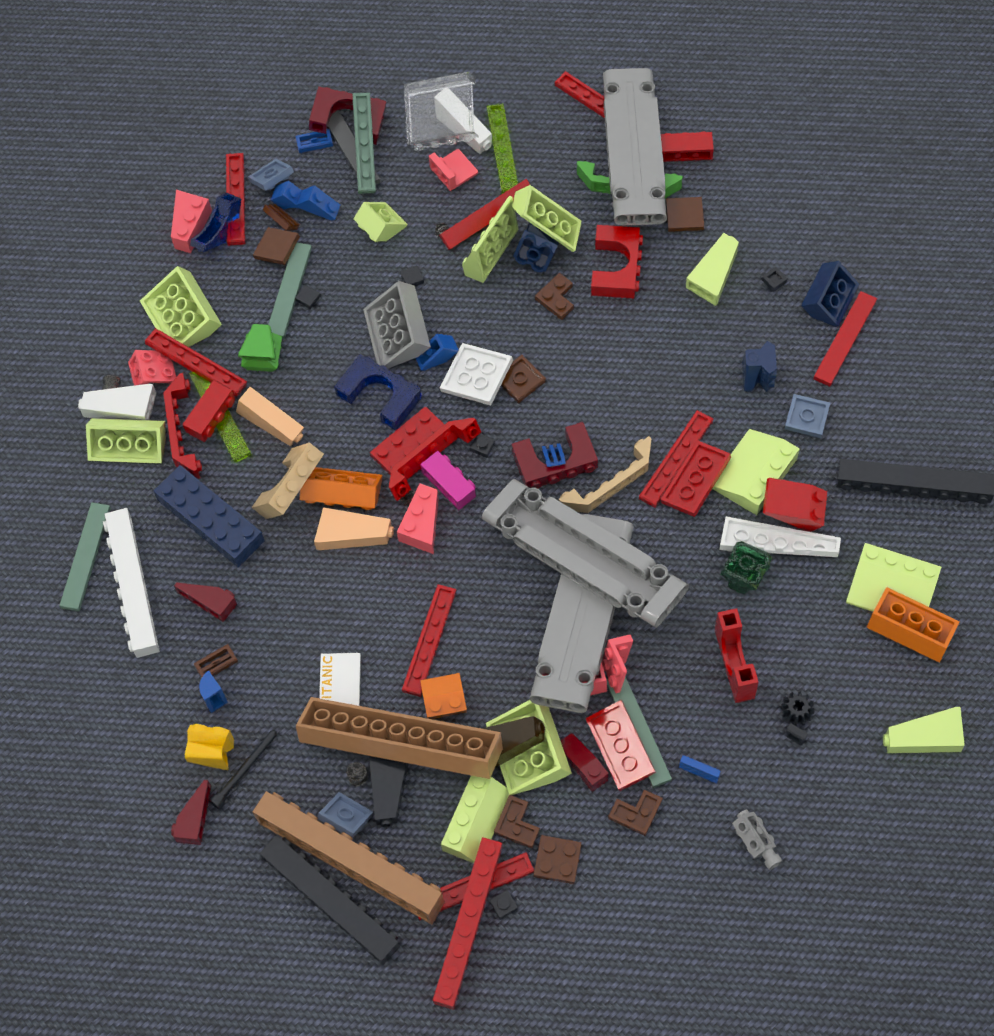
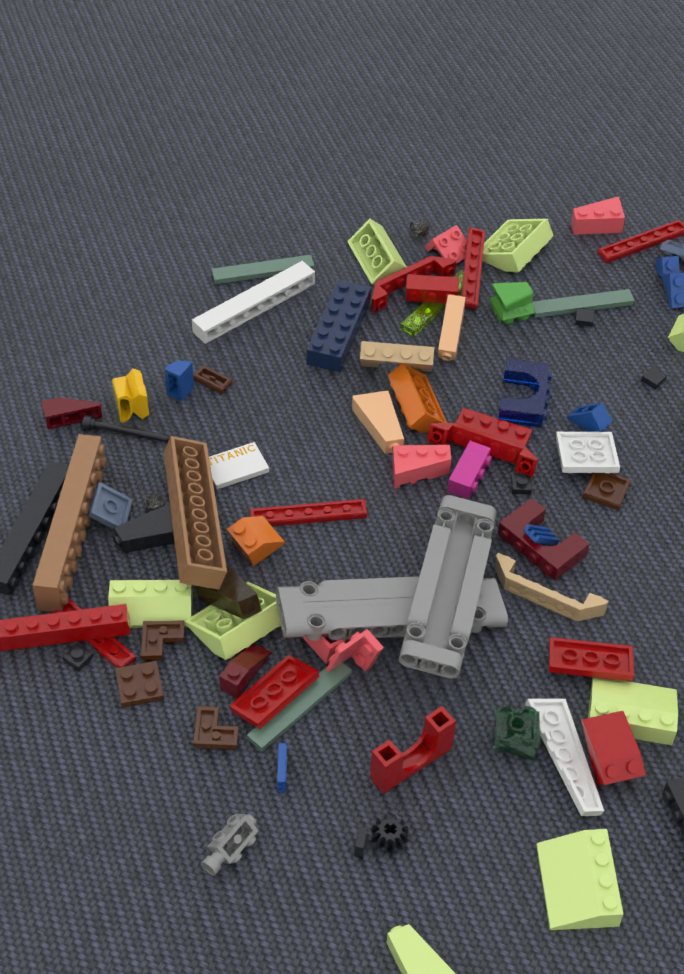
camera: 60 degrees right, 15 degrees down
(119, 403) = (407, 238): white slope -> none
(209, 598) = (264, 356): dark red slope -> none
(215, 232) = (599, 235): clear blue arch -> none
(276, 245) = (616, 279): reddish brown tile -> none
(281, 217) = (647, 274): reddish brown tile -> none
(396, 326) = (596, 379): light grey slope -> none
(674, 459) = (642, 643): red tile -> none
(912, 624) = (542, 912): orange slope -> none

